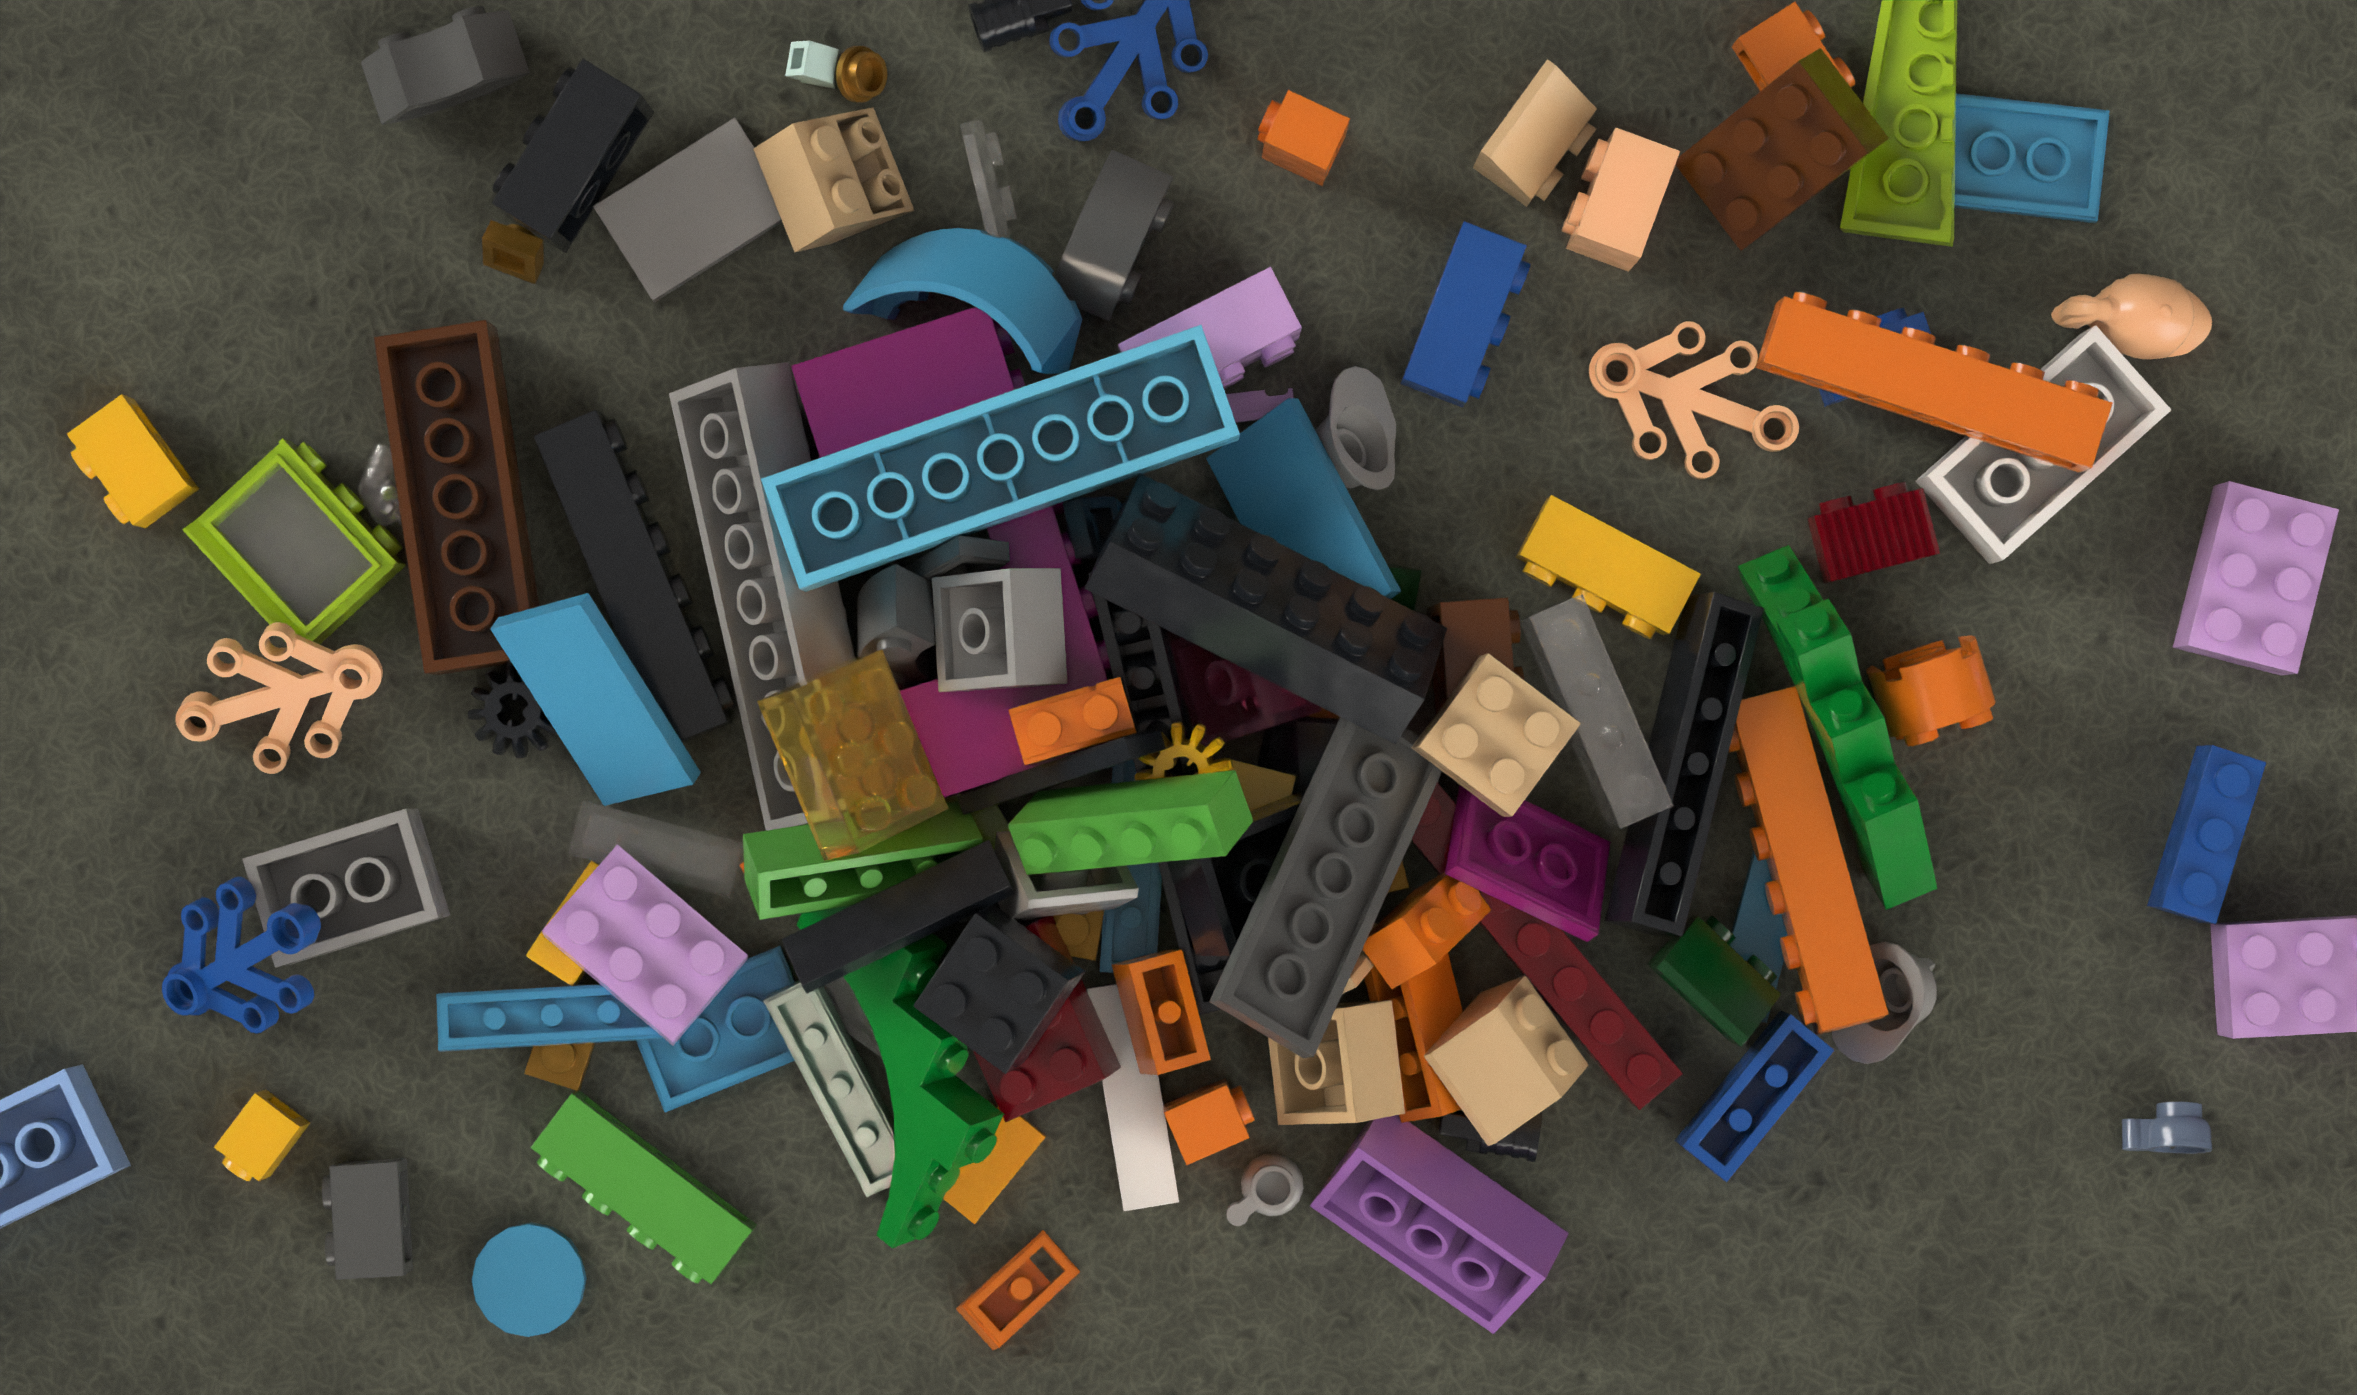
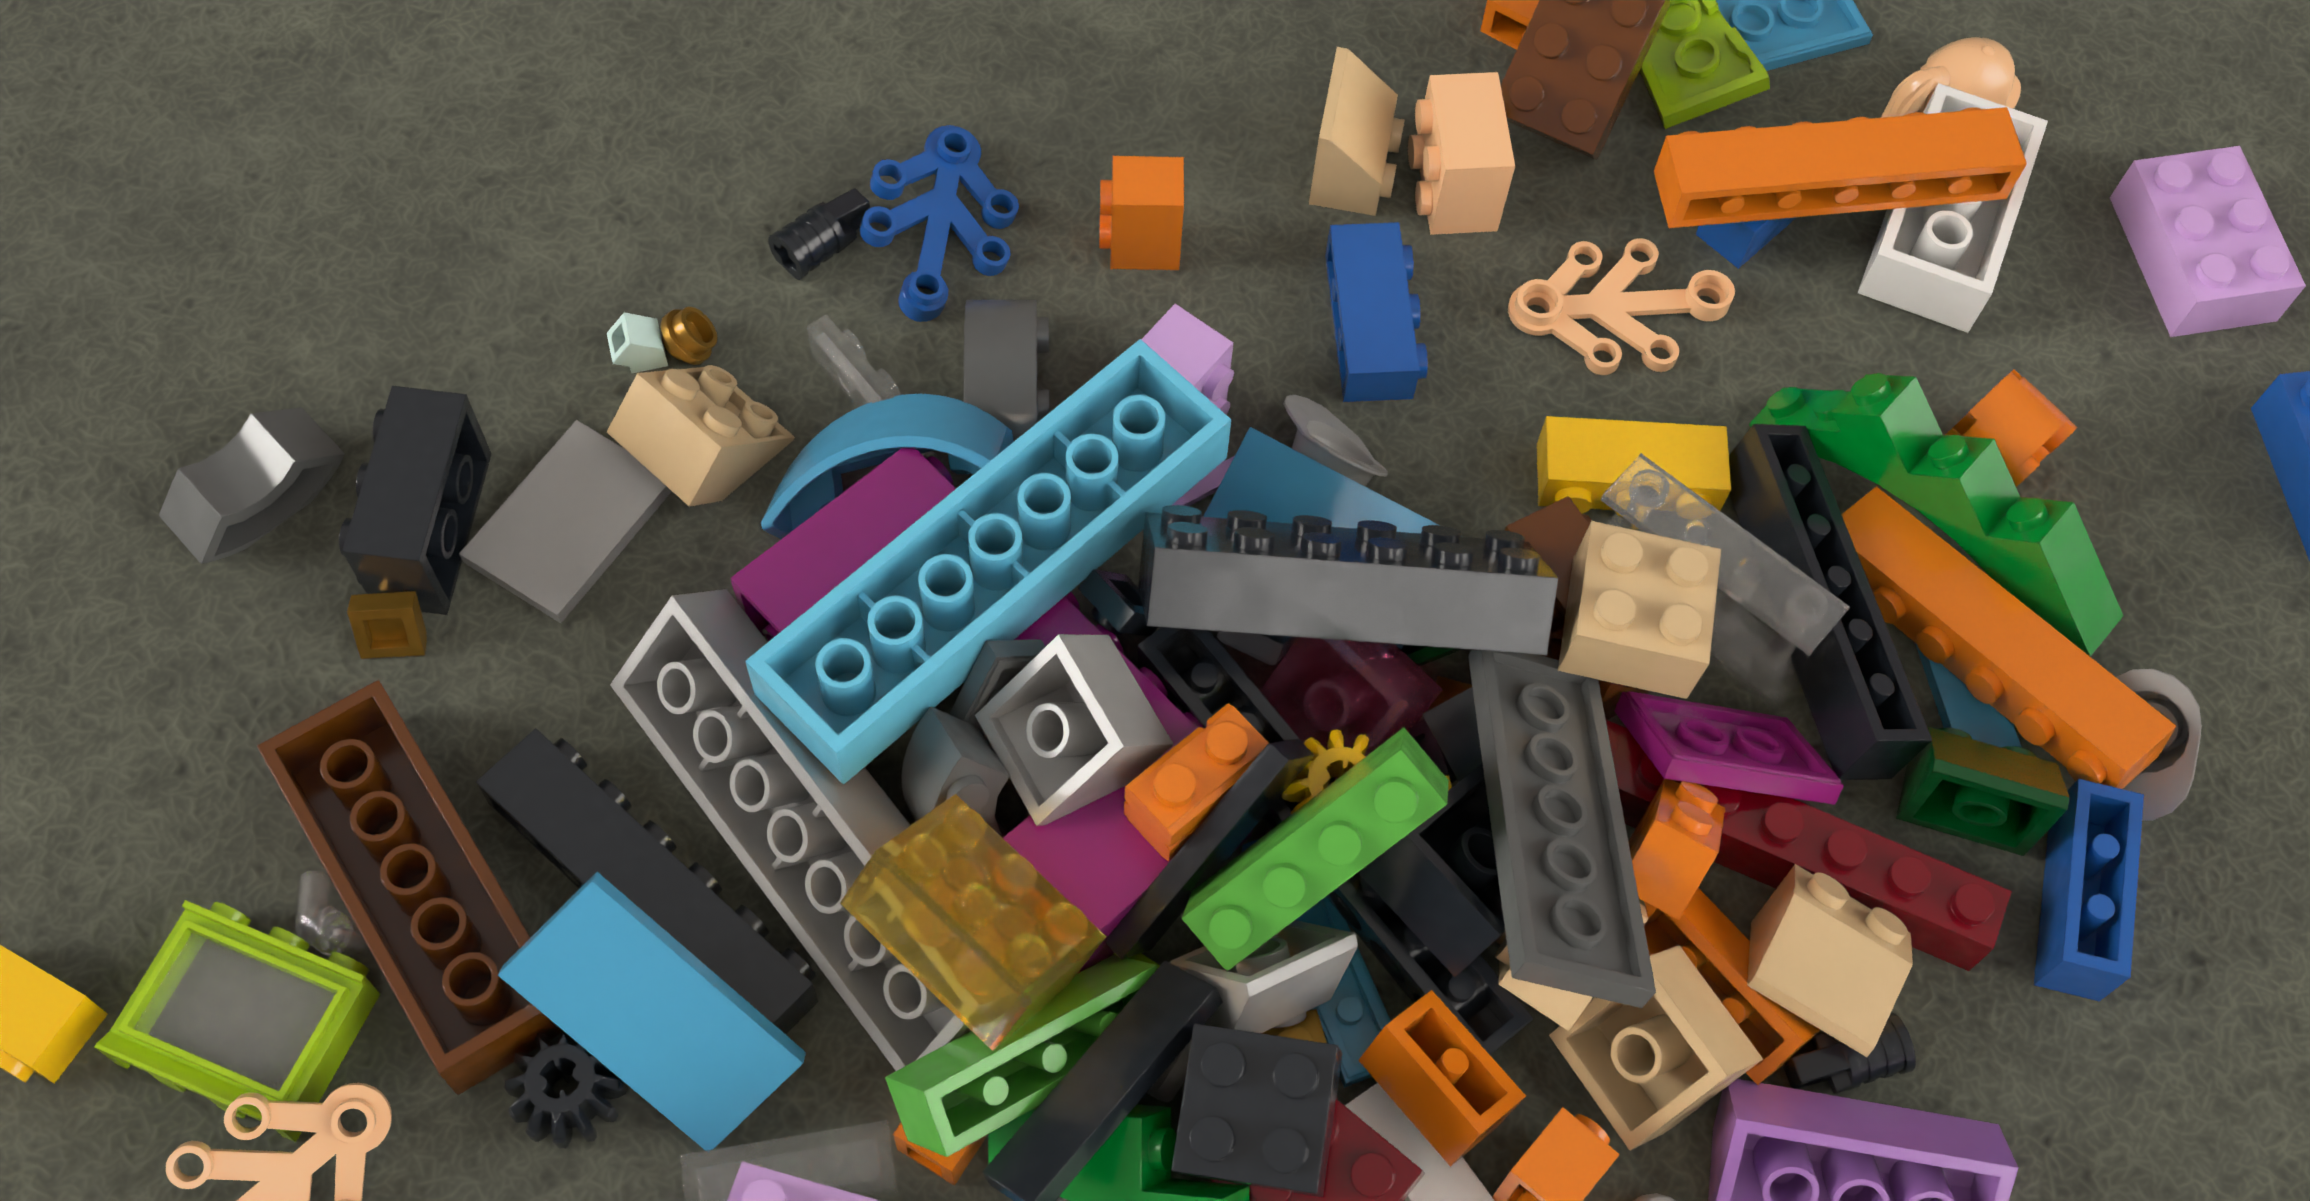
camera: 25 degrees left, 25 degrees down
(1872, 534) = (1858, 337): dark red brick -> none

